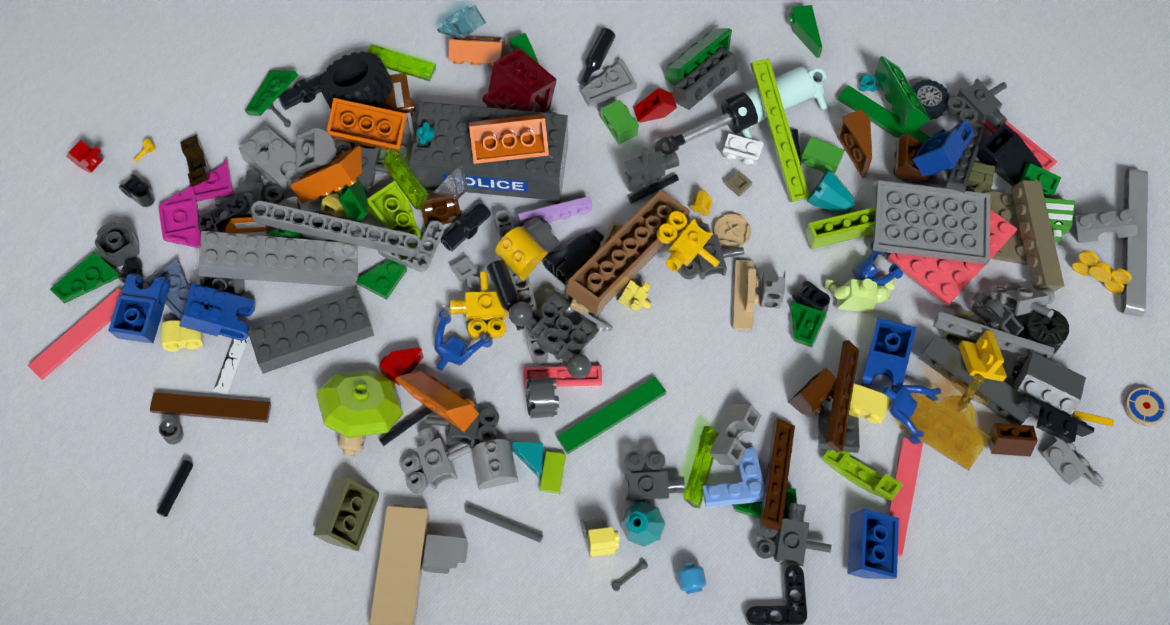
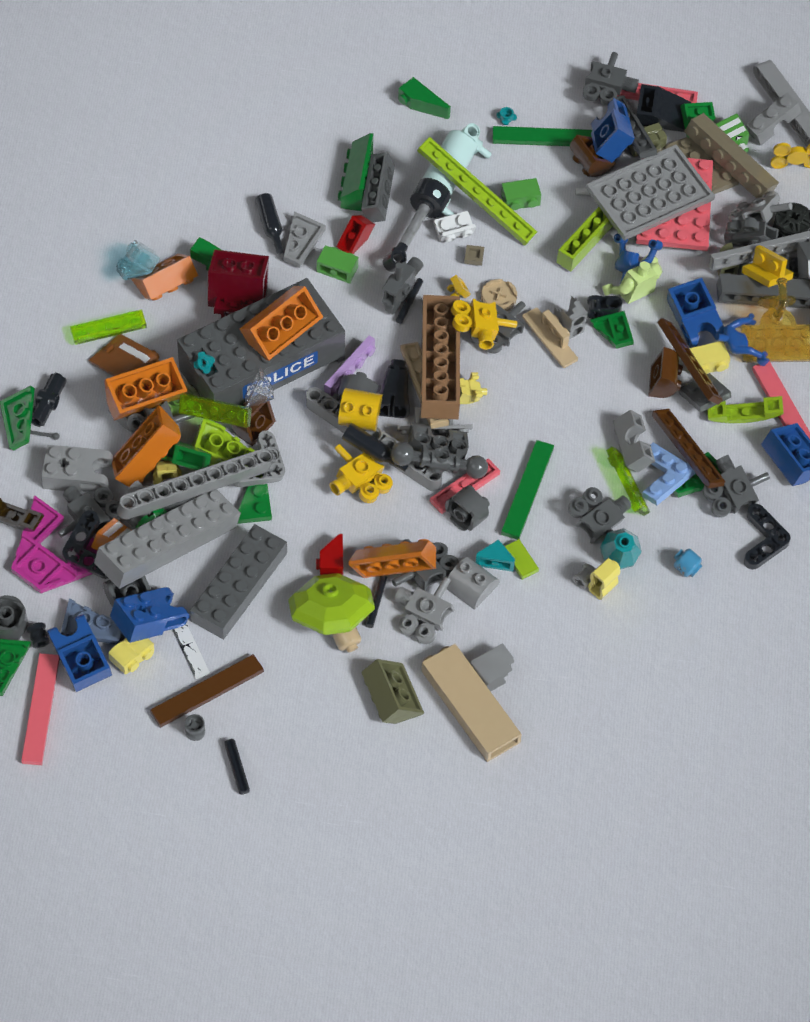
camera: 40 degrees left, 5 degrees down
(314, 150) = (116, 435): light grey brick -> none
(357, 79) = (87, 349): black tyre -> none
(453, 349) = (363, 519): blue piece -> none
(465, 227) = (287, 422): black piece -> none
(465, 272) = (319, 457): light grey plate -> none
(504, 523) = (516, 619): dark grey bar -> none
(616, 586) = (637, 606): dark grey hinge -> none
(832, 194) = (553, 218): teal cone -> none
(856, 139) = (539, 162): dark orange slope -> none
(900, 95) = (544, 109): green slope -> none
(932, 96) = (564, 101): wheel -> none

